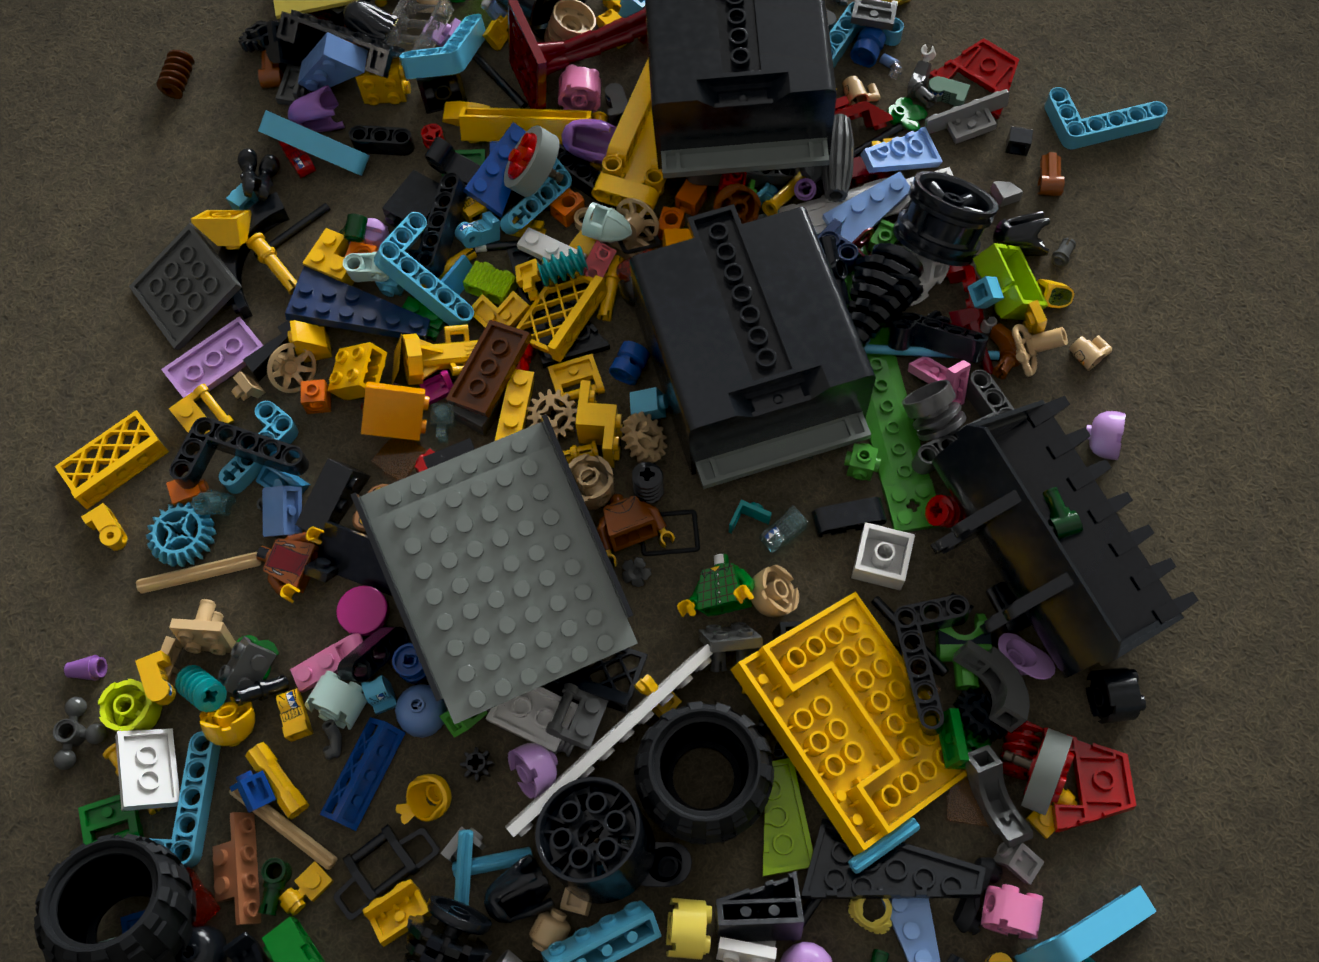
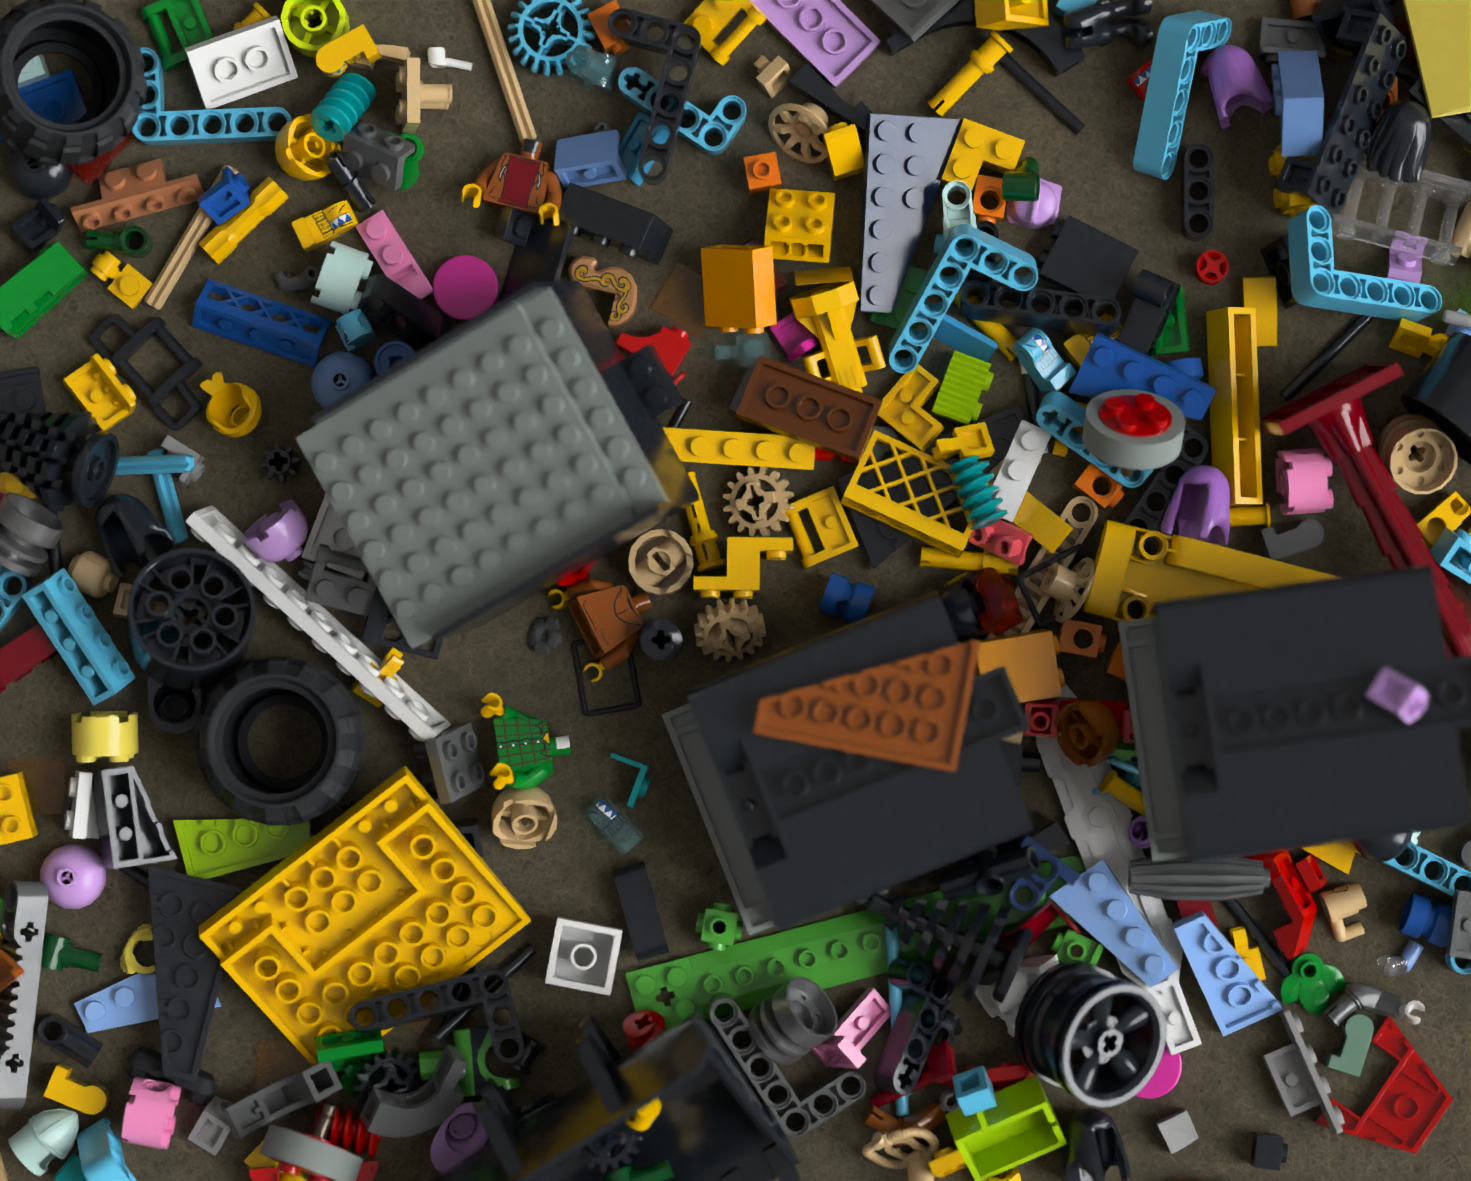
camera: 85 degrees right, 20 degrees up
(187, 612) = (437, 59): none -> white hand
(606, 224) = (1045, 548): light aqua helmet -> none
(649, 401) = (781, 628): medium azure brick -> none
(716, 287) = (889, 712): none -> dark orange wing
(883, 846) = (190, 935): medium azure axle -> none

